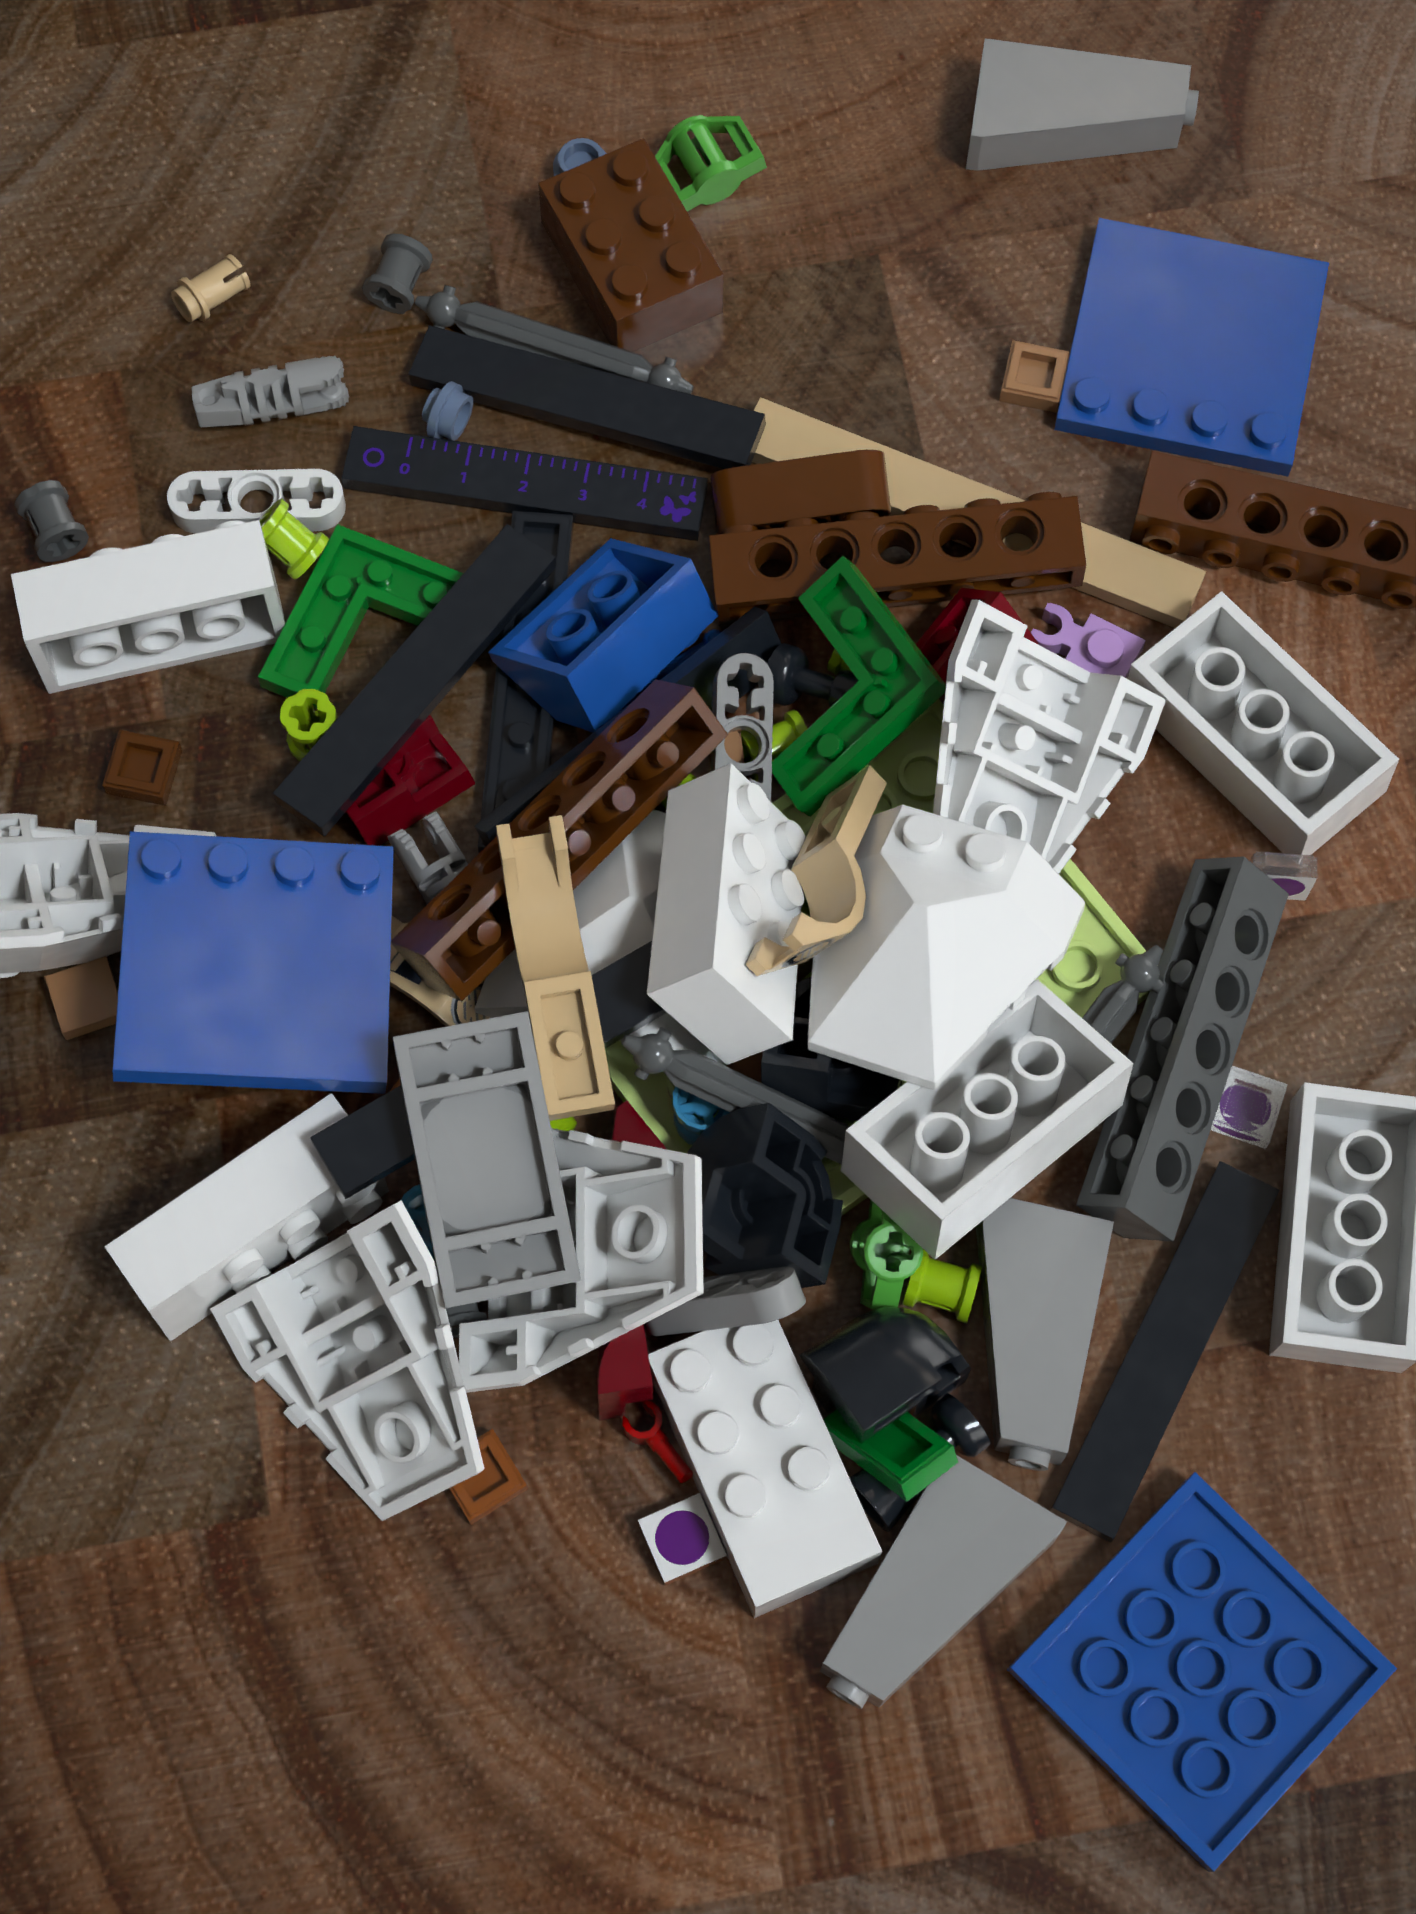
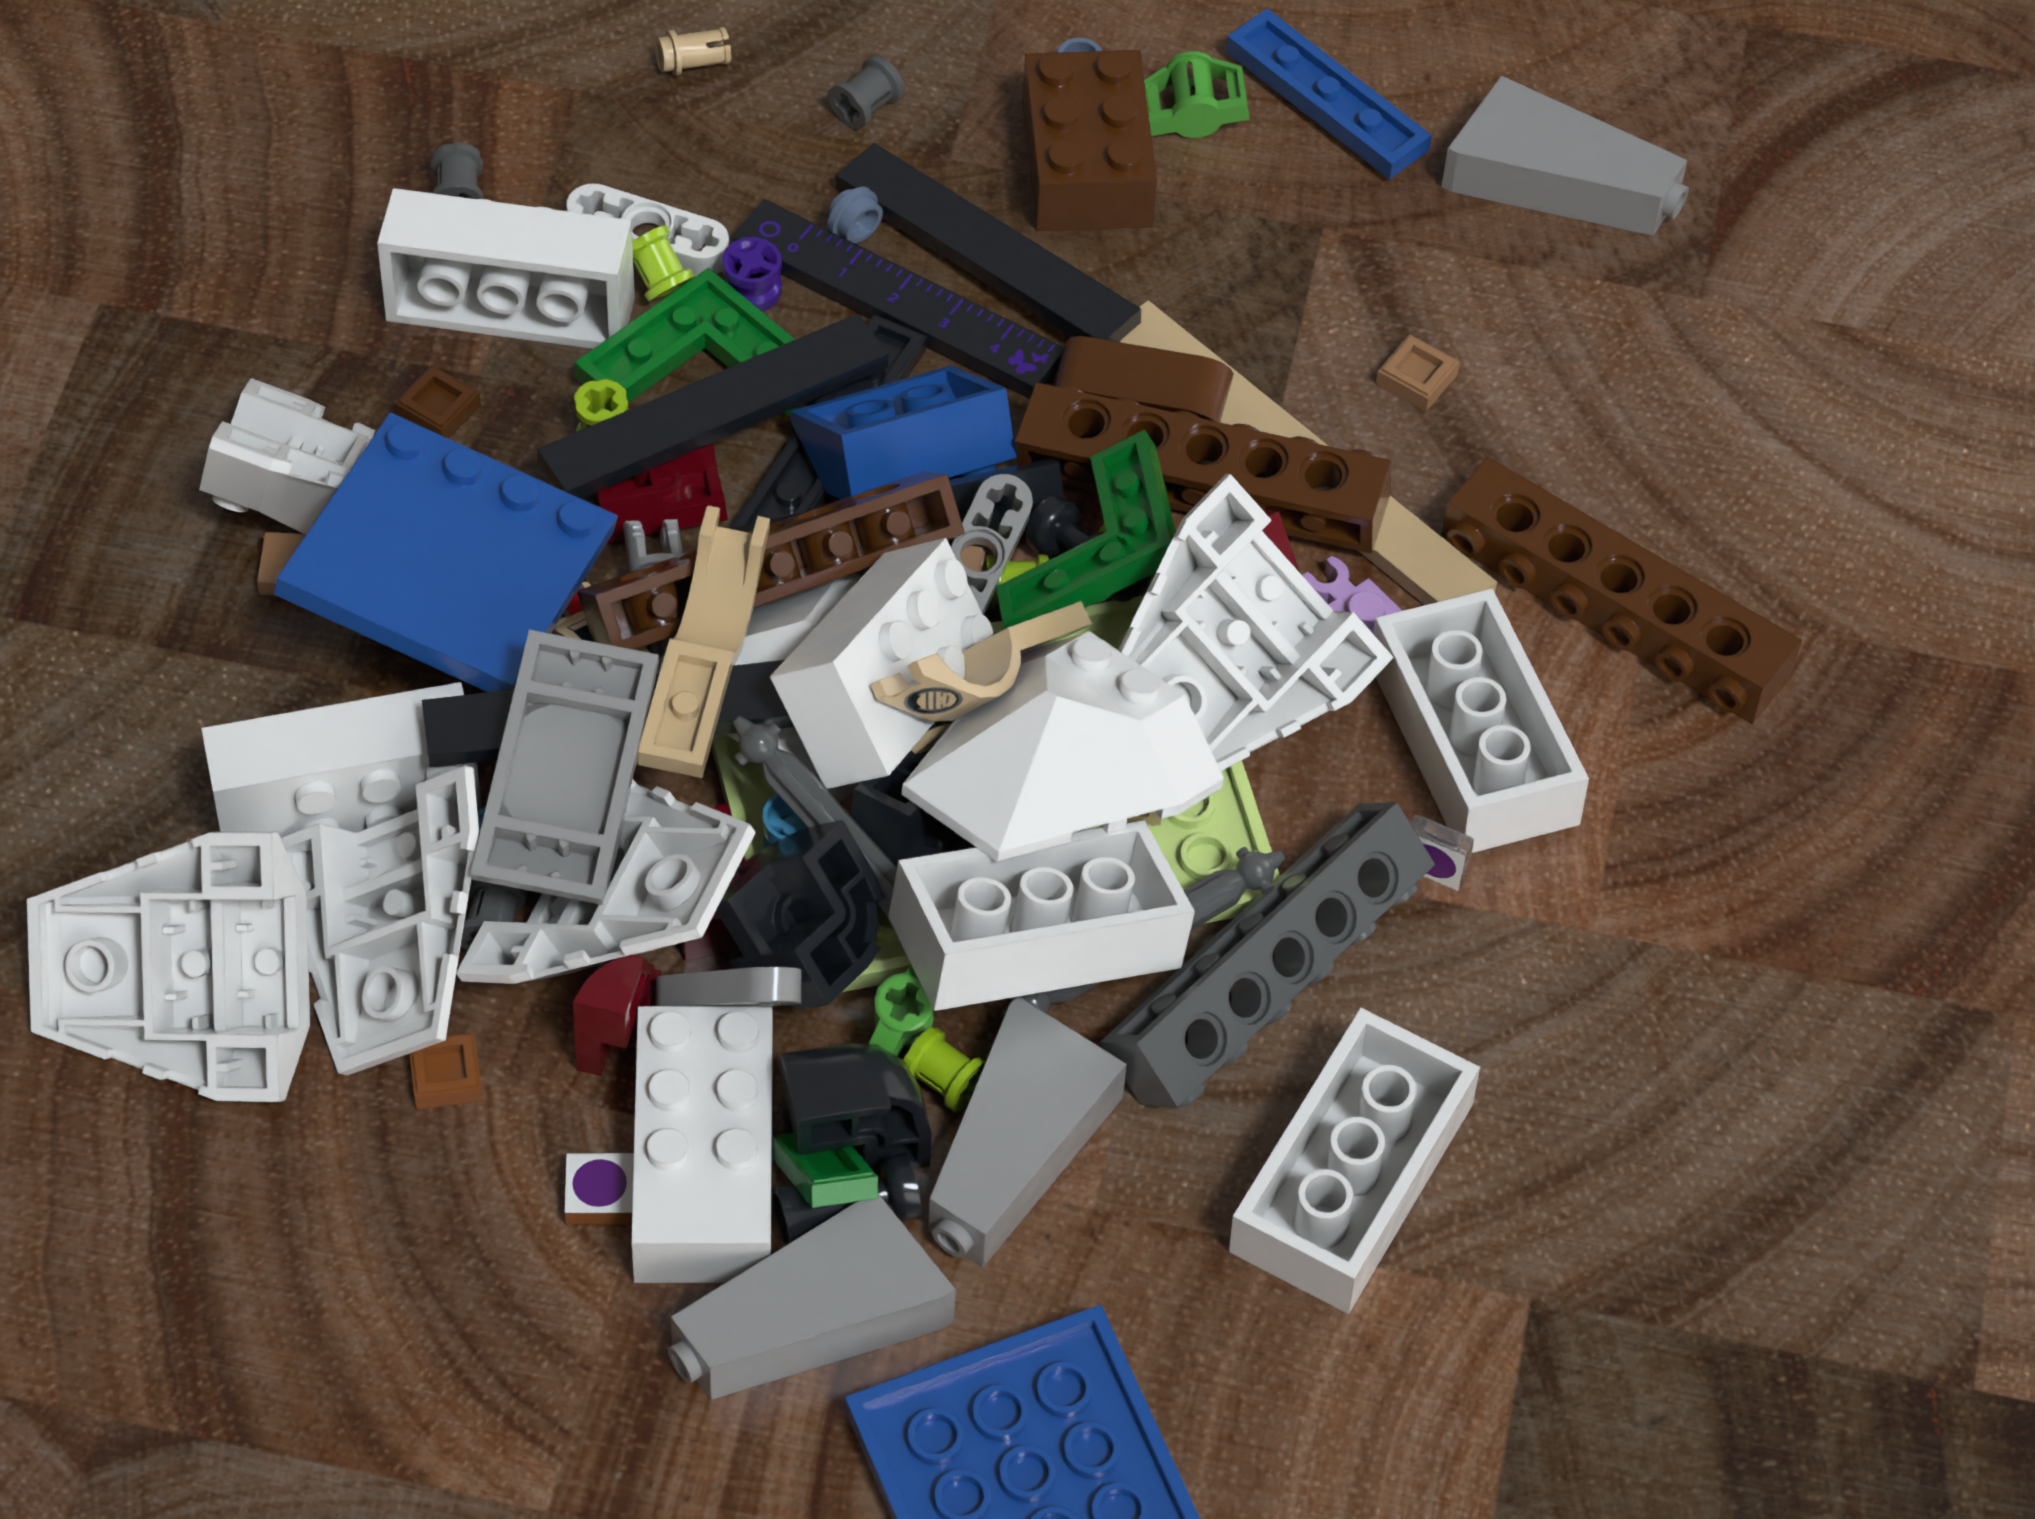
camera: 20 degrees right, 15 degrees down
(193, 1493) = (181, 965): none -> white wedge
(271, 393) = (704, 148): light grey hinge -> none
(375, 498) = (751, 259): none -> dark purple wheel
(540, 338) = (944, 168): dark grey wheel -> none
(659, 1443) = (617, 1096): red hand -> none
(825, 111) = (1328, 93): none -> blue plate
(1164, 1352) = (1127, 1206): black tile -> none
(1193, 347) = (1582, 397): blue plate -> none
(1249, 1107) = (1307, 1034): clear tile -> none

